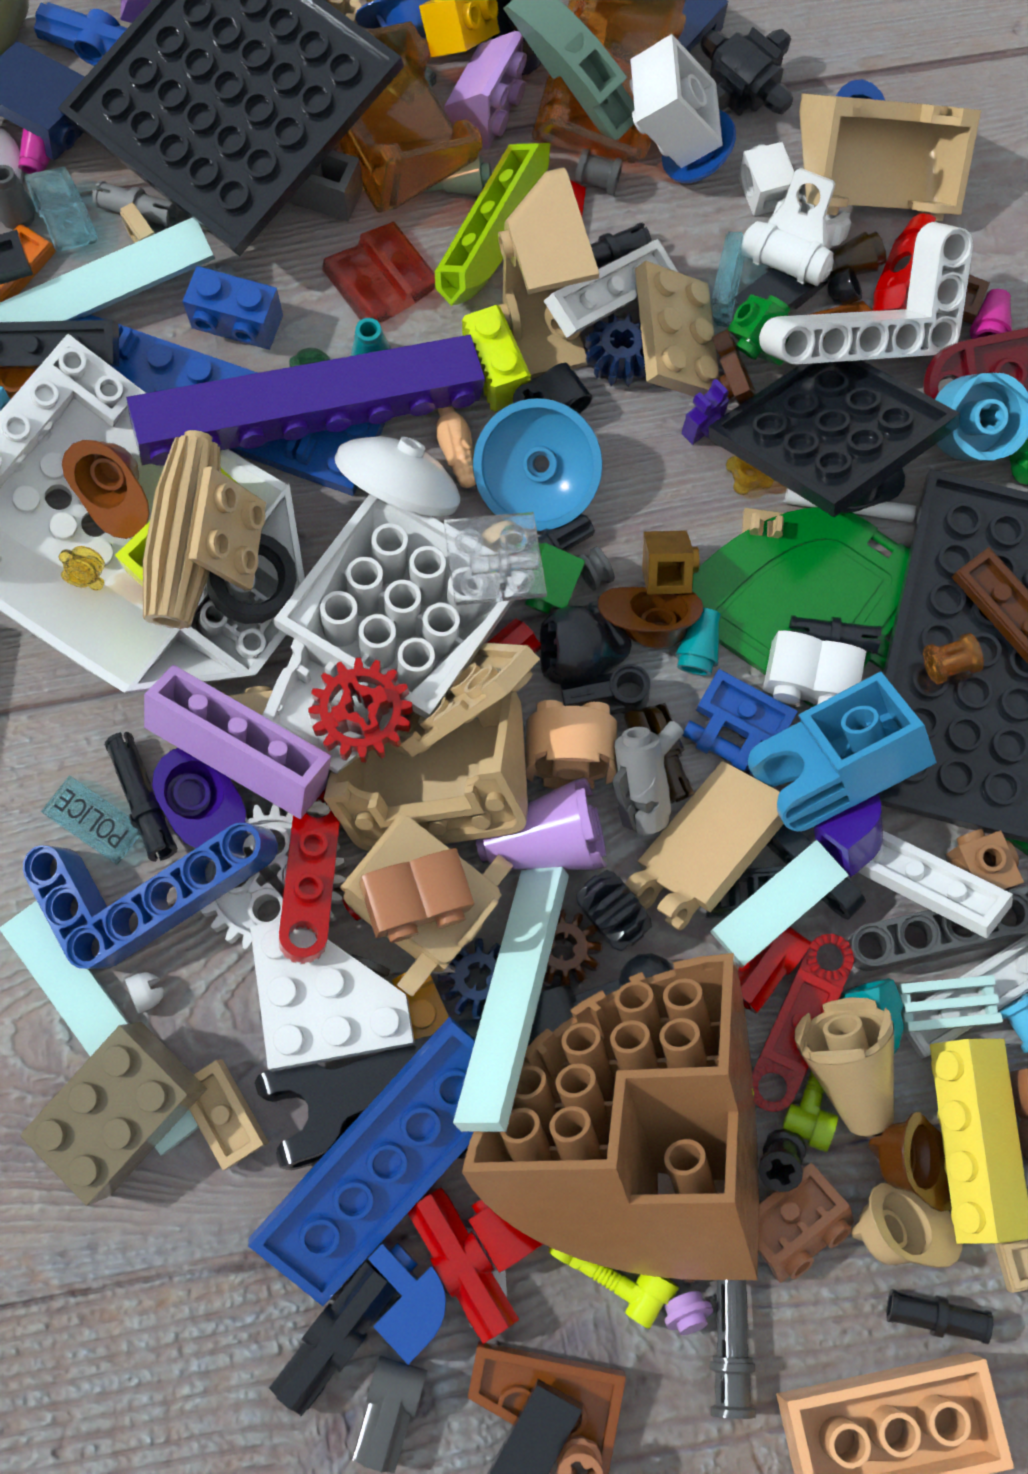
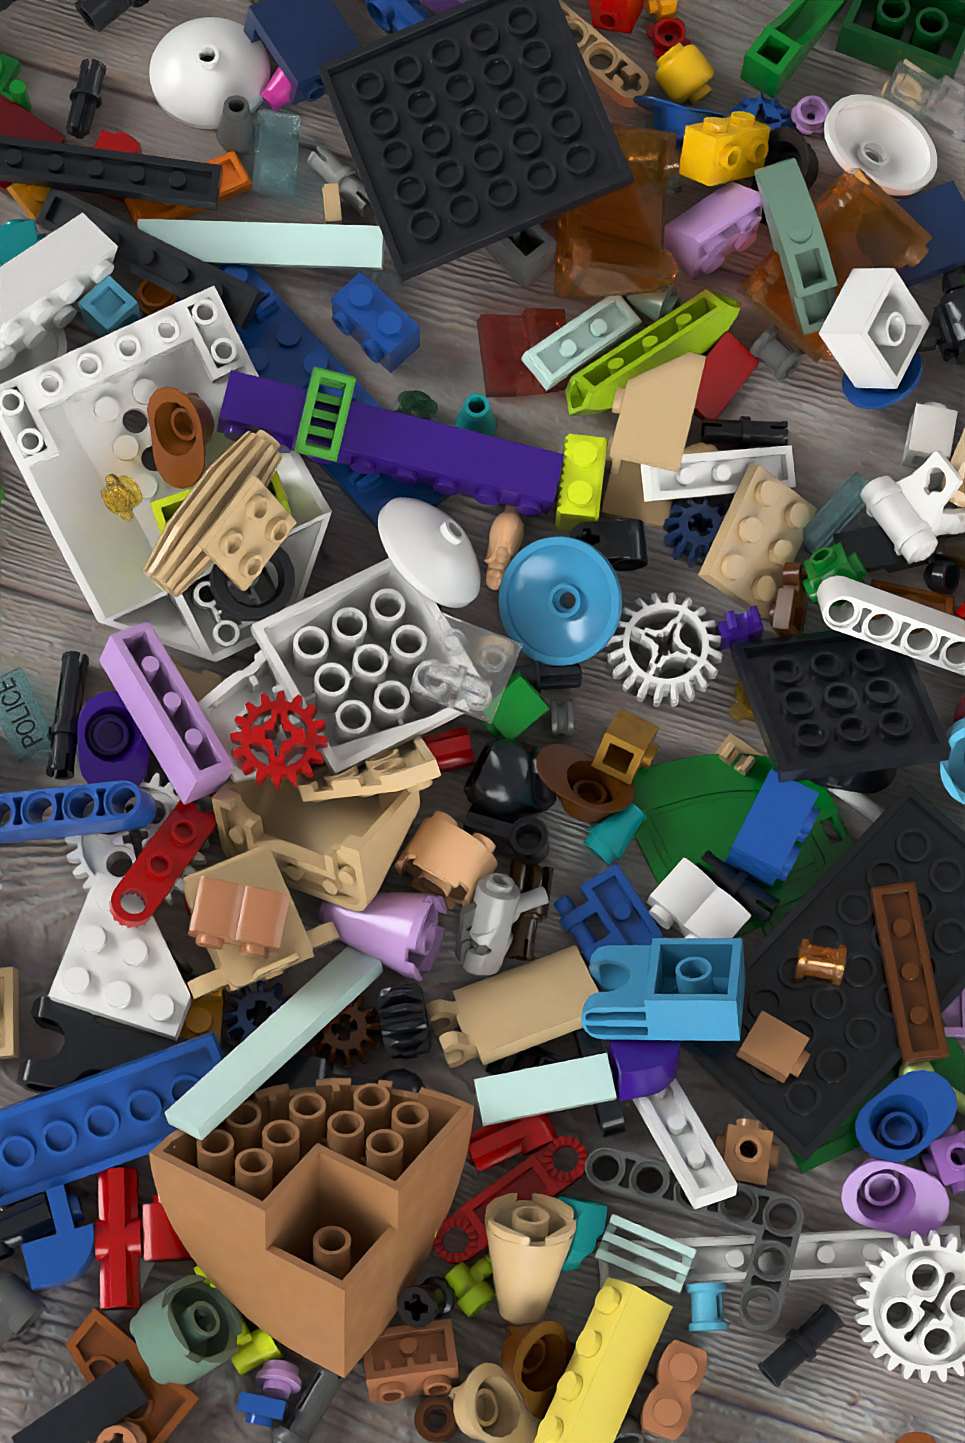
camera: 30 degrees right, 0 degrees up
(229, 359) = (333, 380): none -> bright green slope
(424, 239) = (581, 340): none -> light aqua tile
(580, 1320) = (186, 1331): none -> sand green brick
(681, 456) = (679, 656): none -> white gear
(689, 1351) = (261, 1409): none -> blue plate
(843, 564) = (768, 835): none -> blue brick
(866, 1265) = (421, 1419): none -> reddish brown plate
(962, 755) = (775, 1048): none -> medium nougat brick

